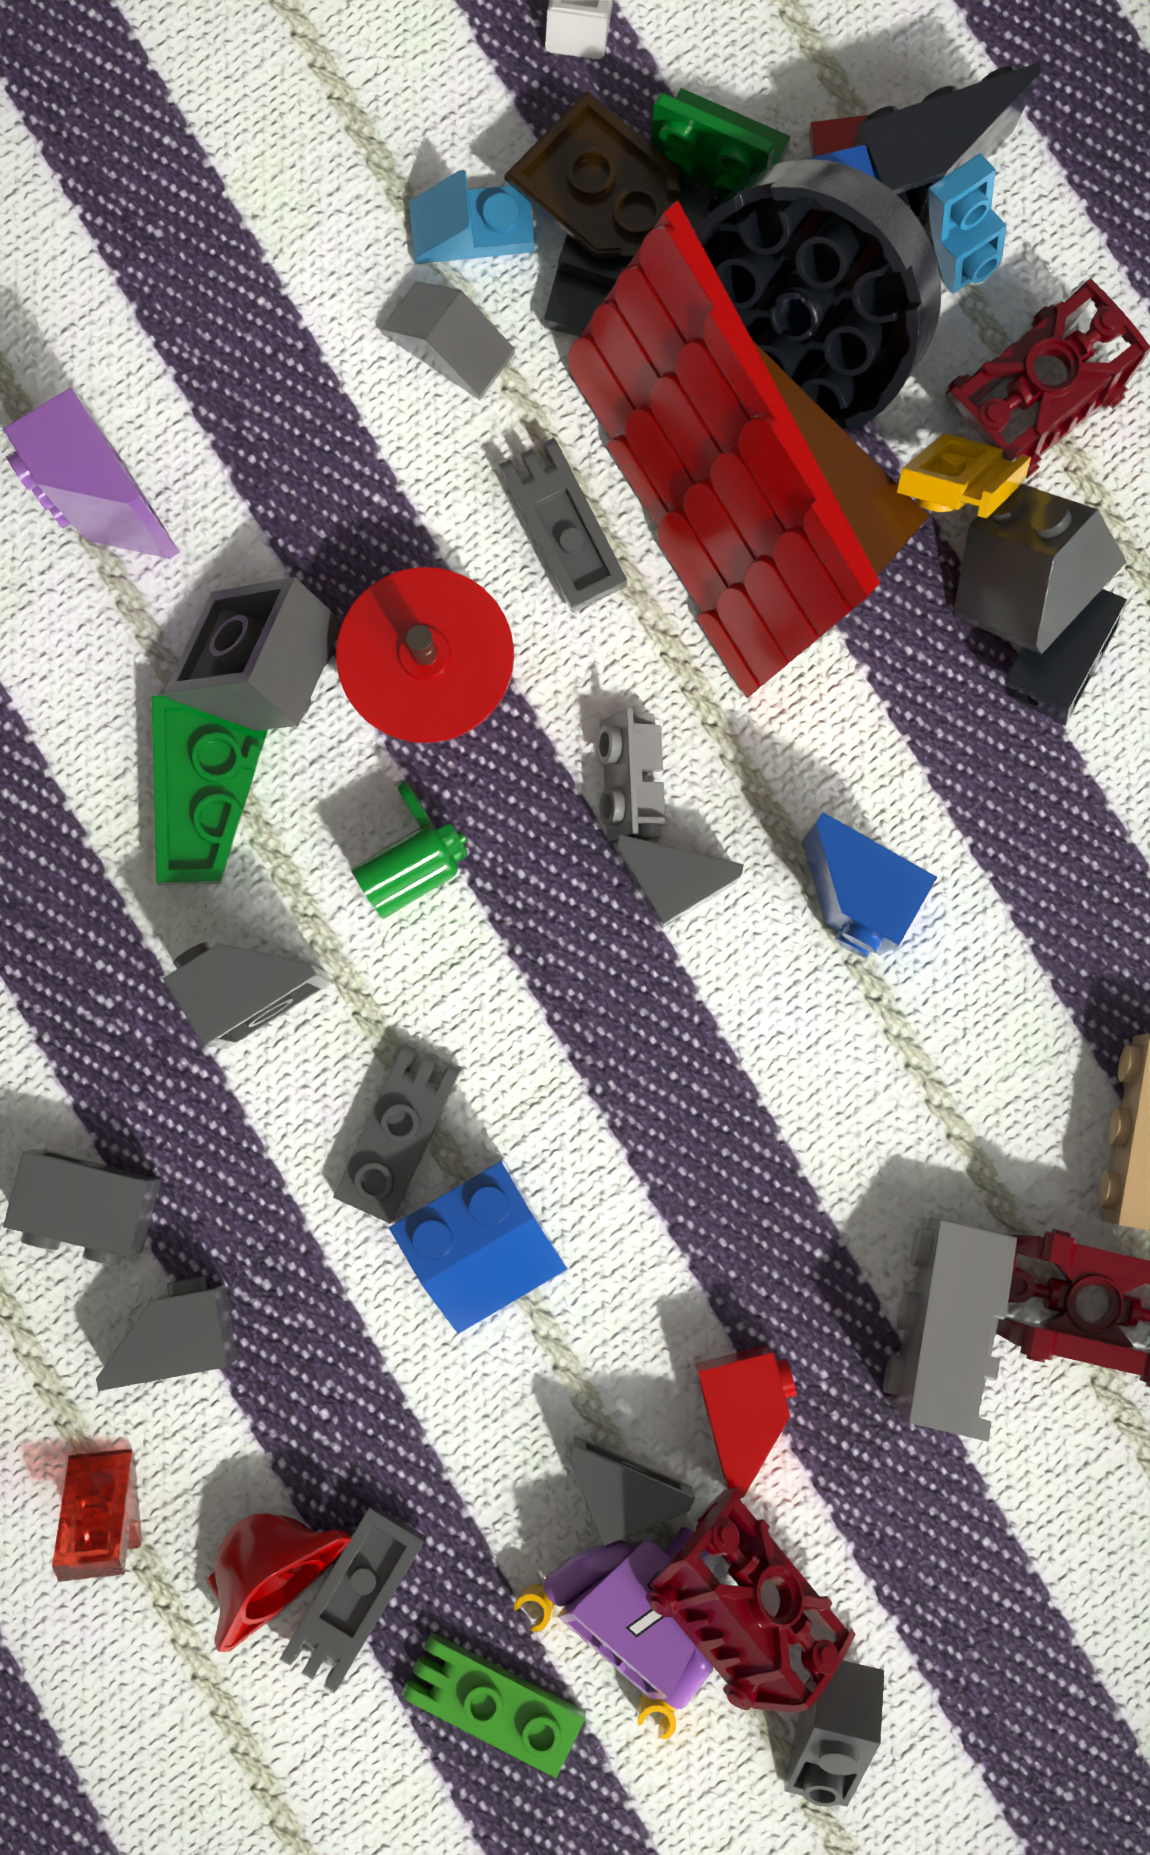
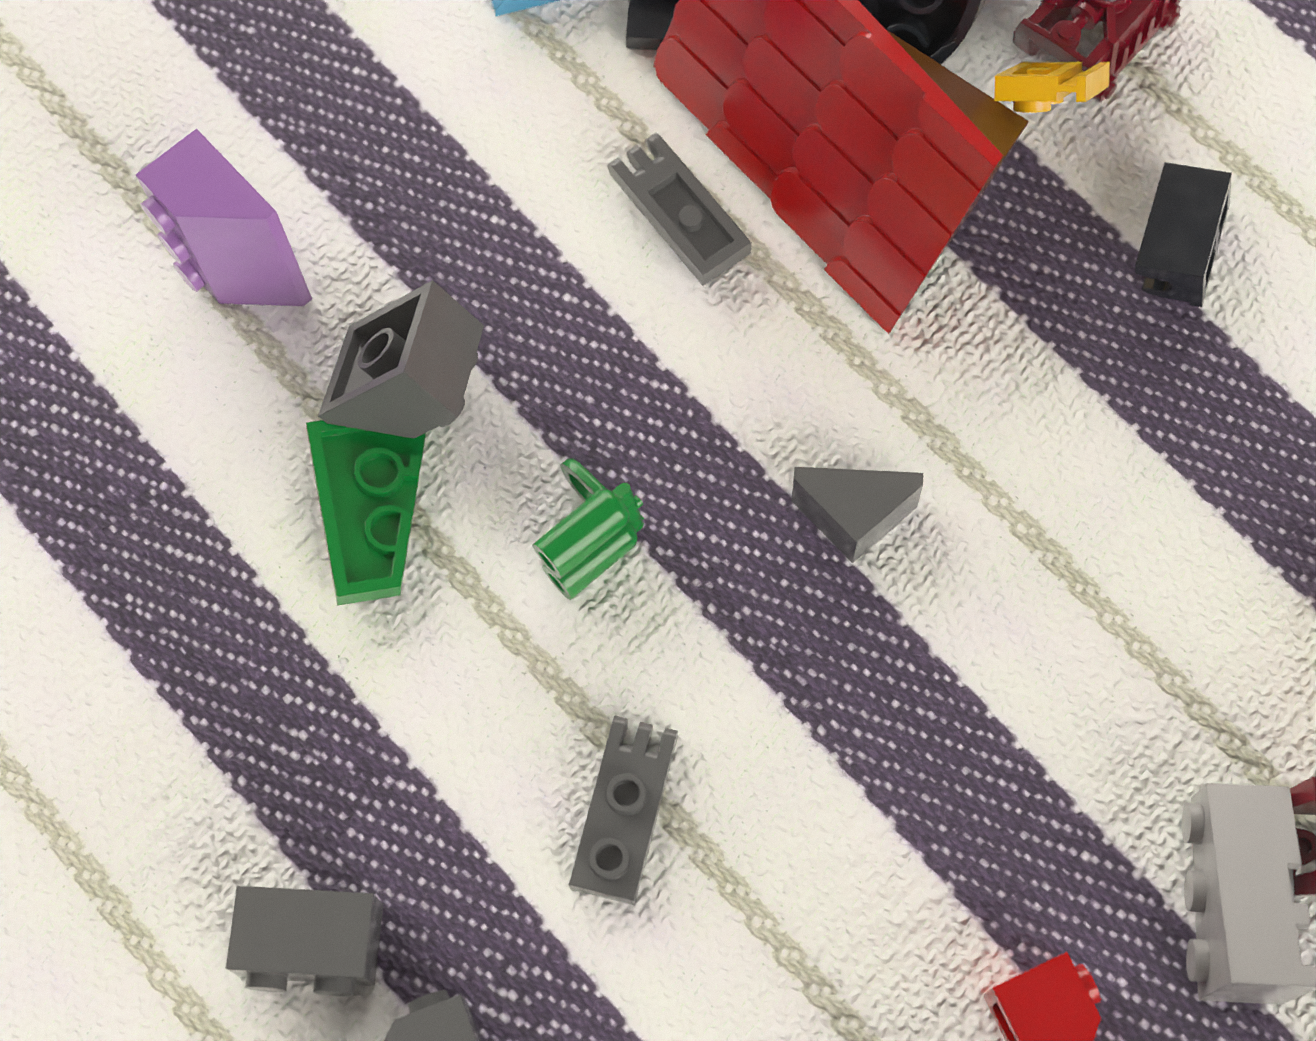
camera: 10 degrees left, 15 degrees down
(238, 990) = (444, 677): dark grey slope -> none
(425, 655) = (570, 334): red piece -> none
(449, 336) = (540, 65): dark grey slope -> none
(478, 1247) = (732, 905): blue slope -> none
(627, 748) = (784, 395): light grey hinge -> none
(863, 887) = (1044, 470): blue slope -> none
(1034, 567) = (1136, 156): dark grey slope -> none

